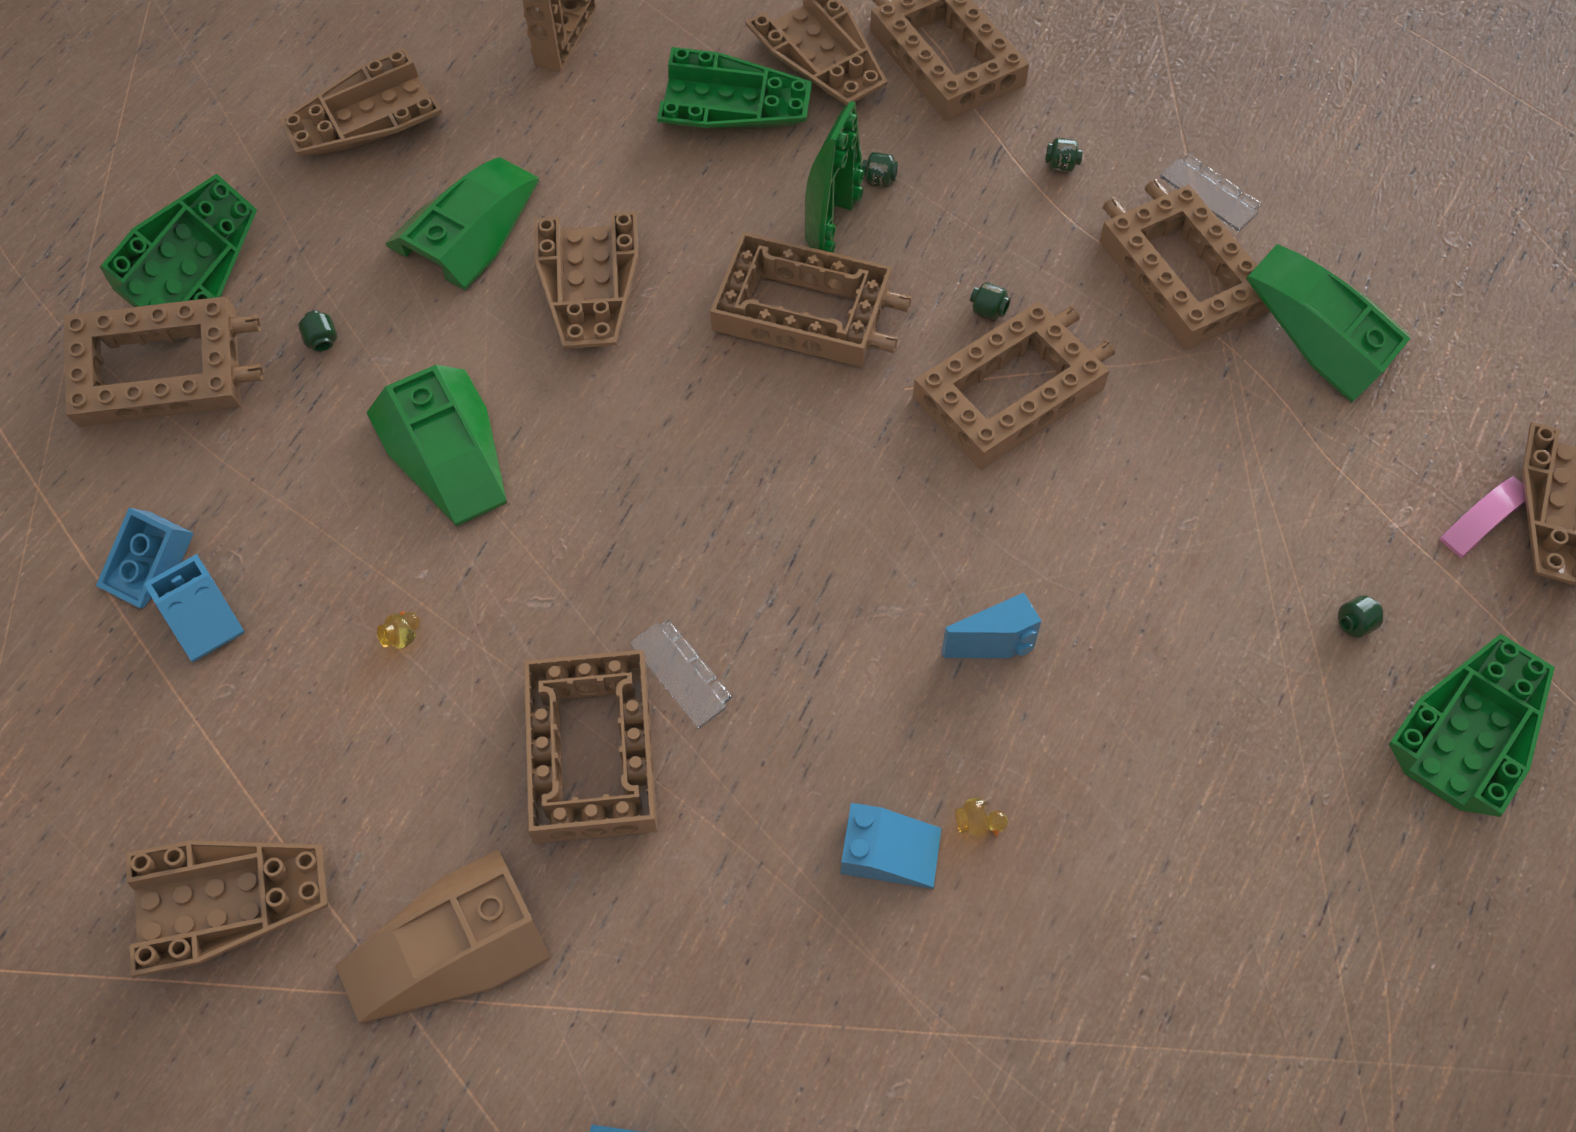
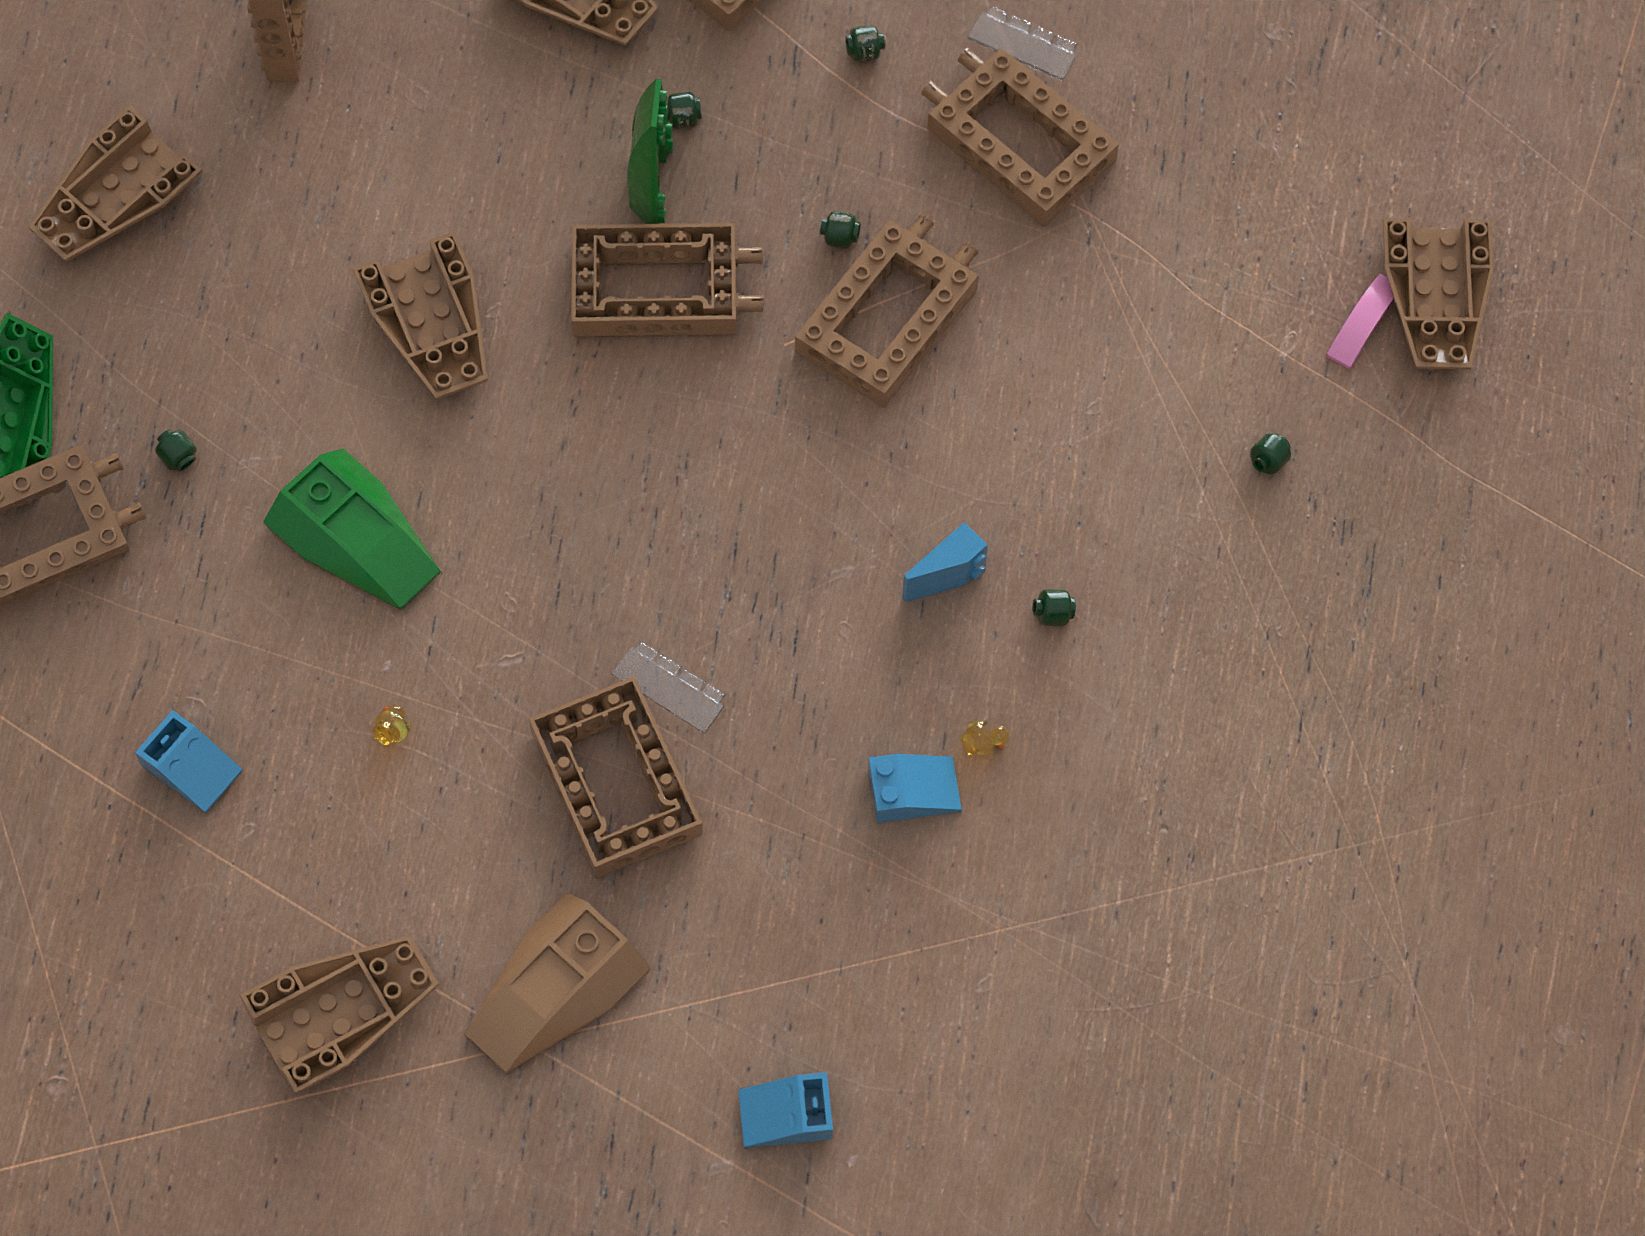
camera: 20 degrees left, 5 degrees up
(141, 552) = (111, 729): dark azure slope -> none
(468, 221) = (276, 285): green wedge -> none
(730, 93) = (492, 65): green wedge -> none
(1093, 706) = (1054, 607): none -> dark green head
(1328, 320) = (1173, 162): green wedge -> none
(1477, 728) = (1393, 527): green wedge -> none

